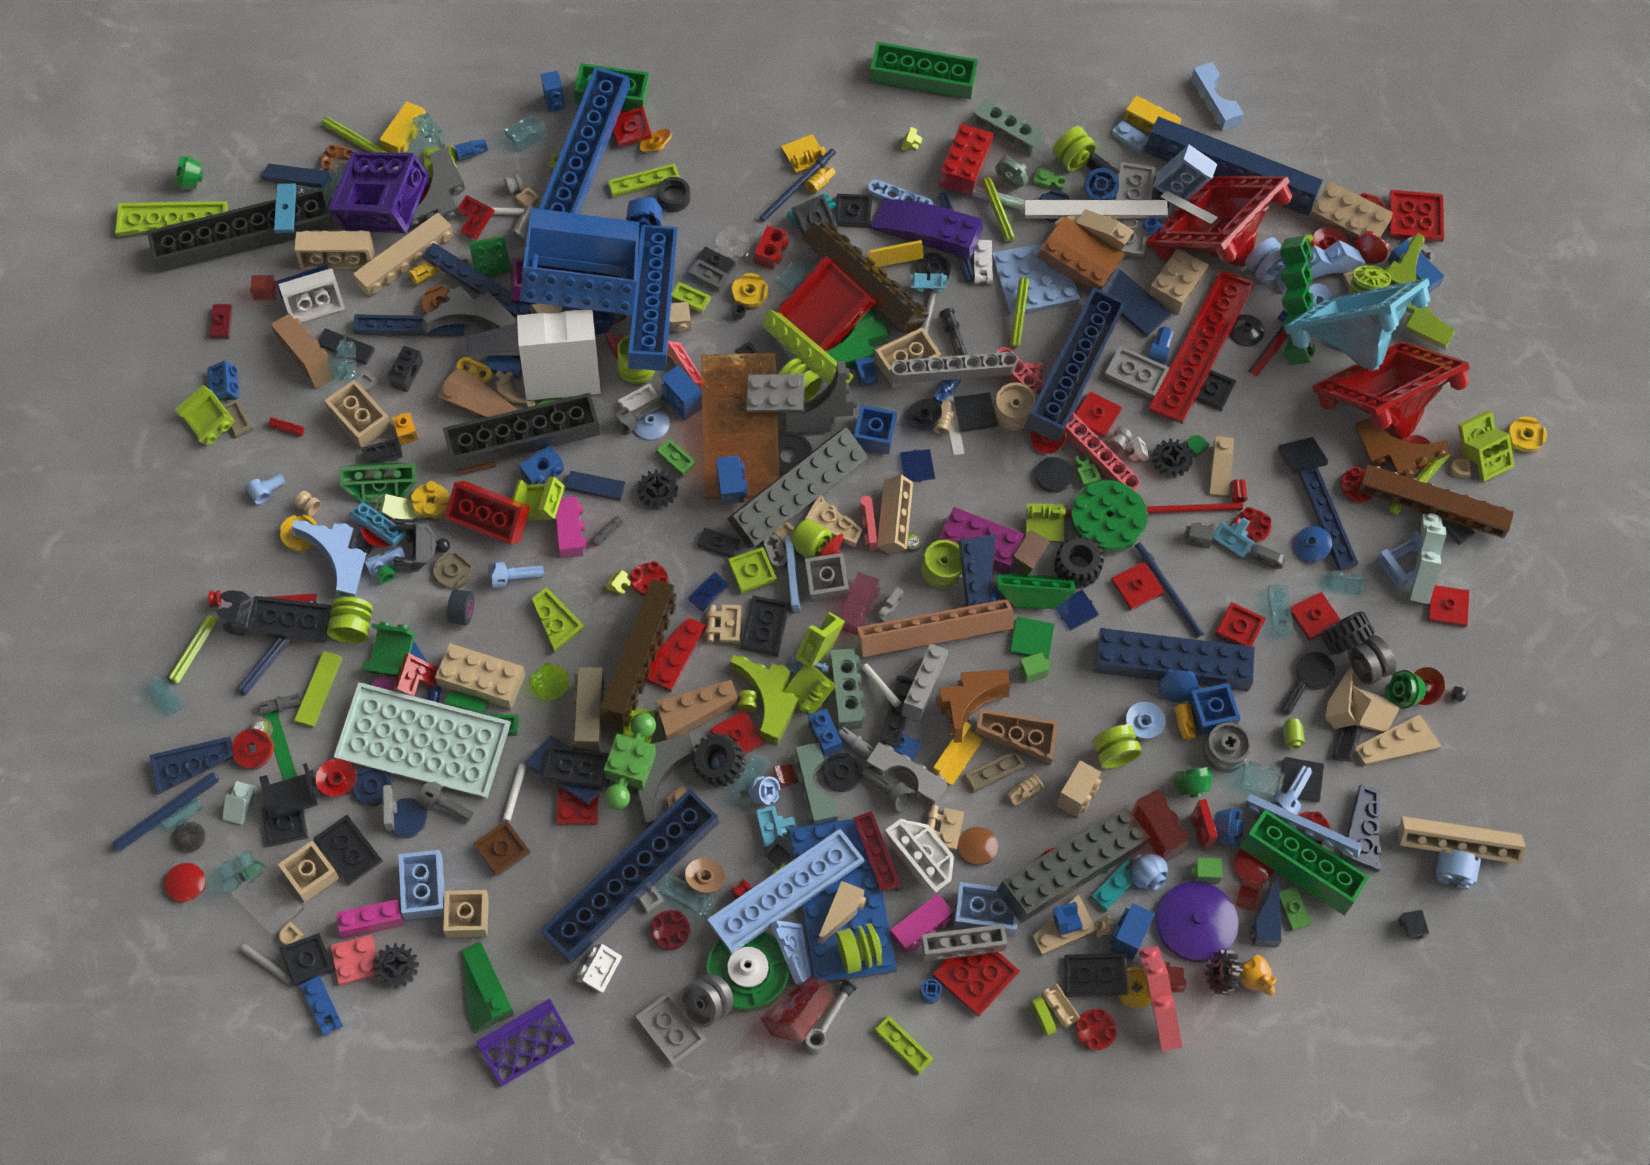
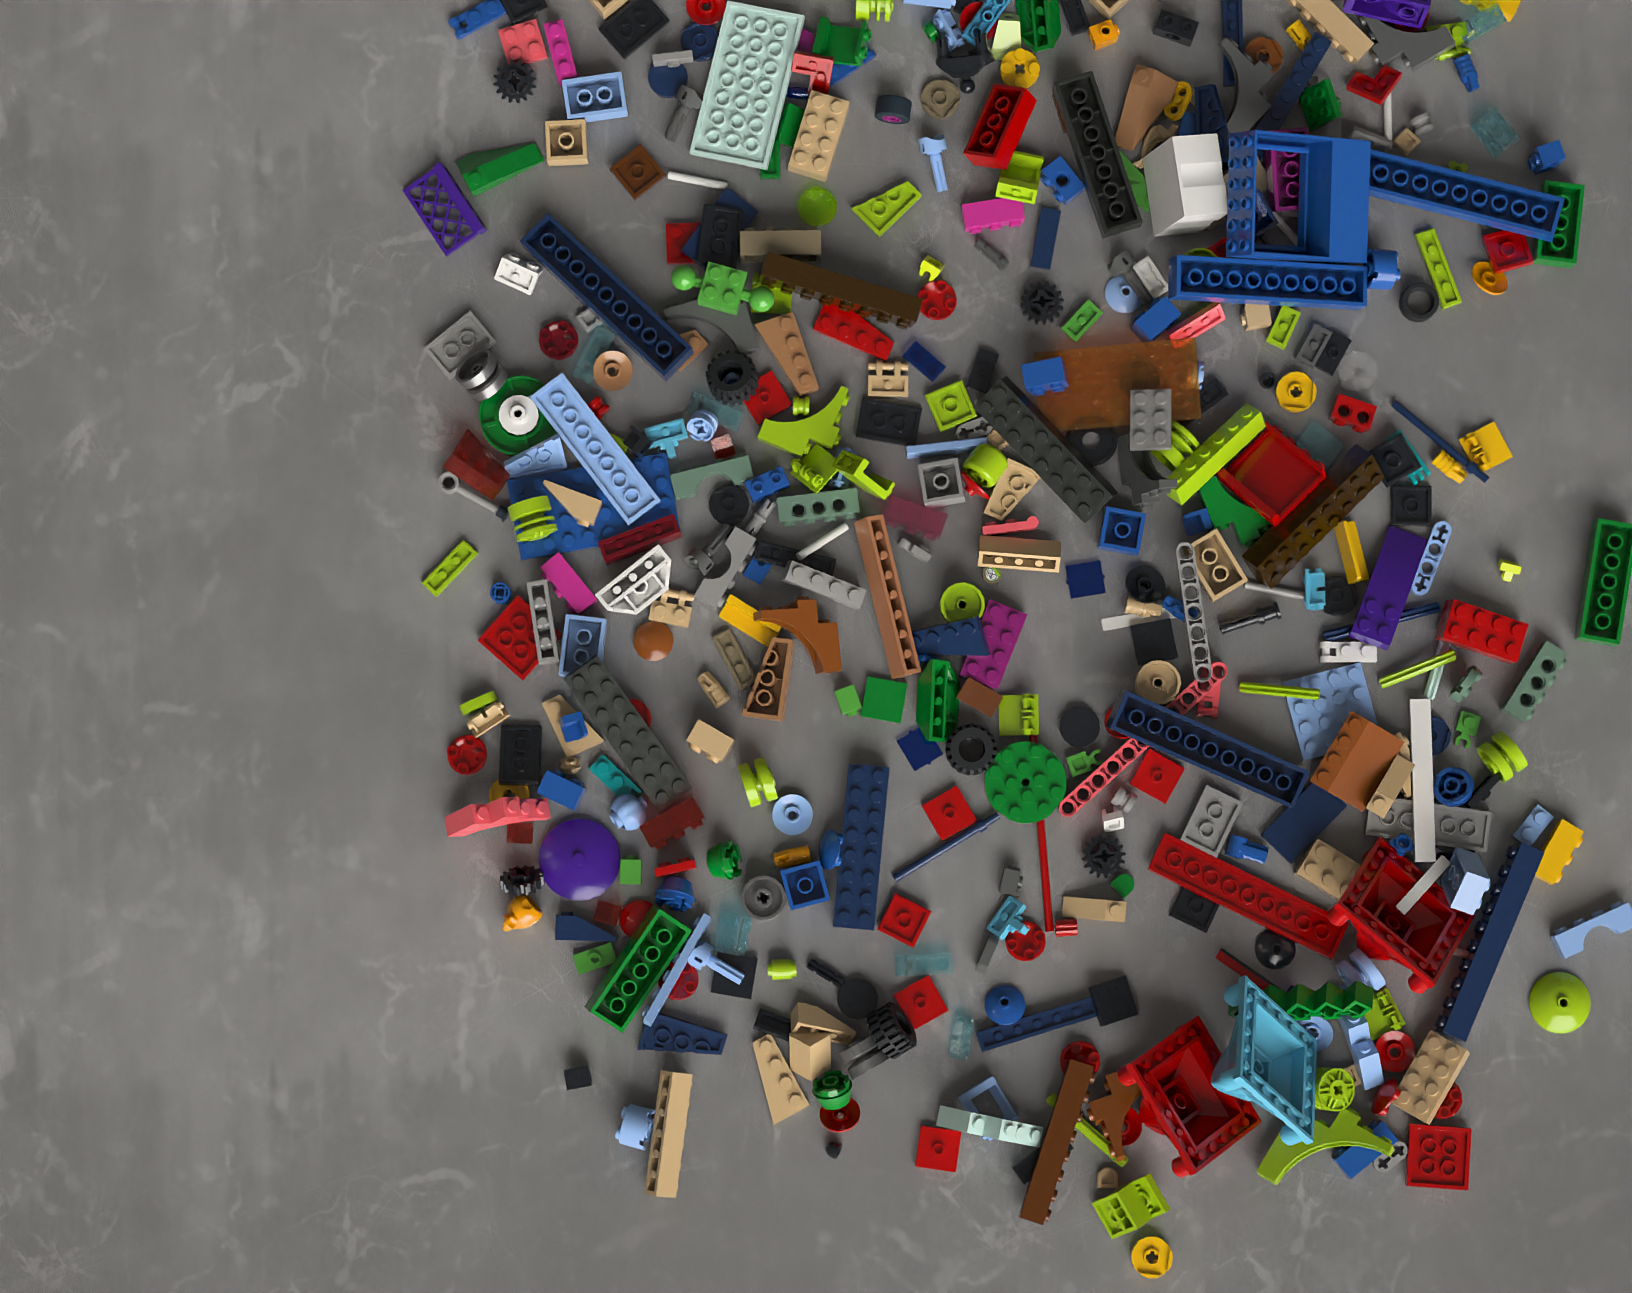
camera: 90 degrees right, 20 degrees up
(1277, 126) = (1546, 998): none -> lime dish

